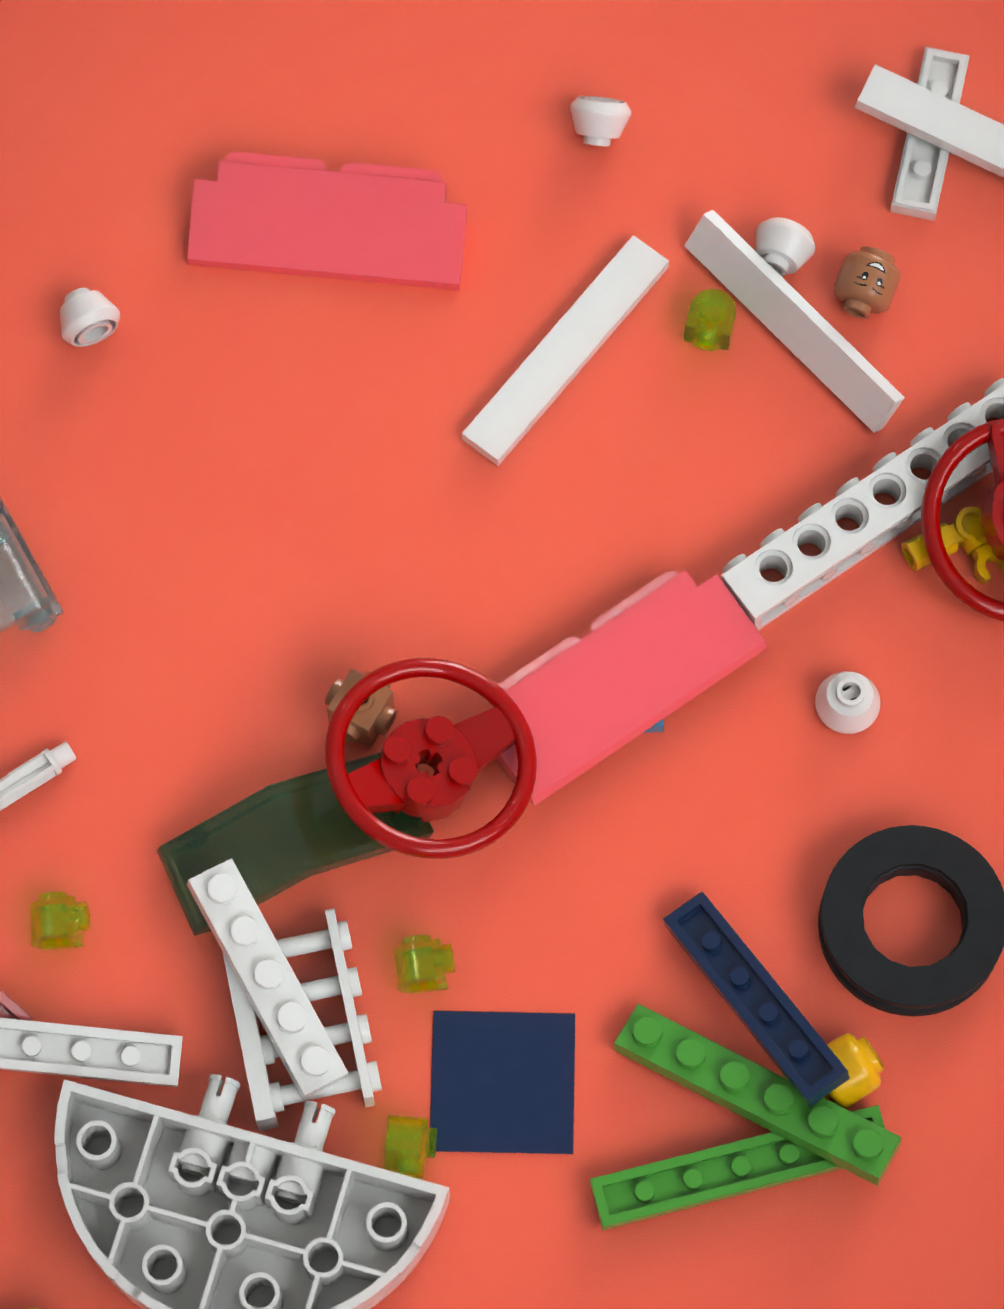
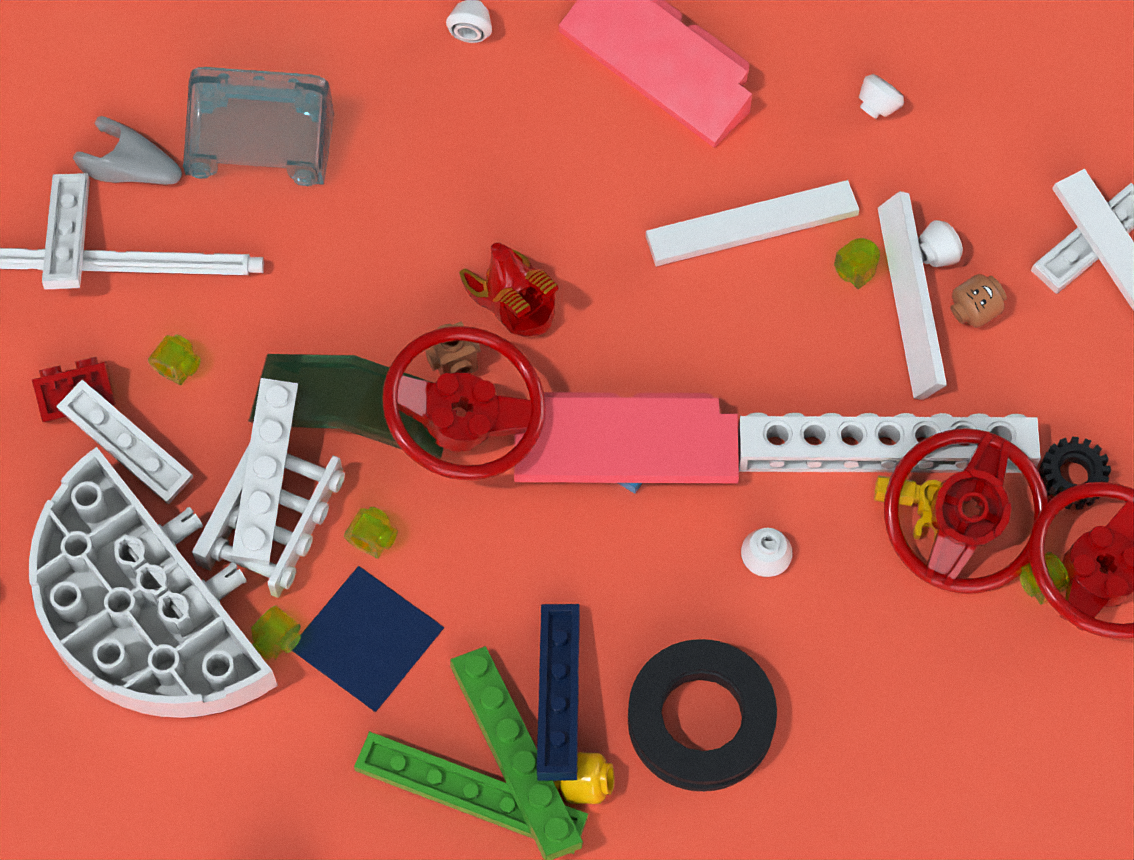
camera: 35 degrees right, 5 degrees down
(375, 596) = (514, 292): none -> red piece

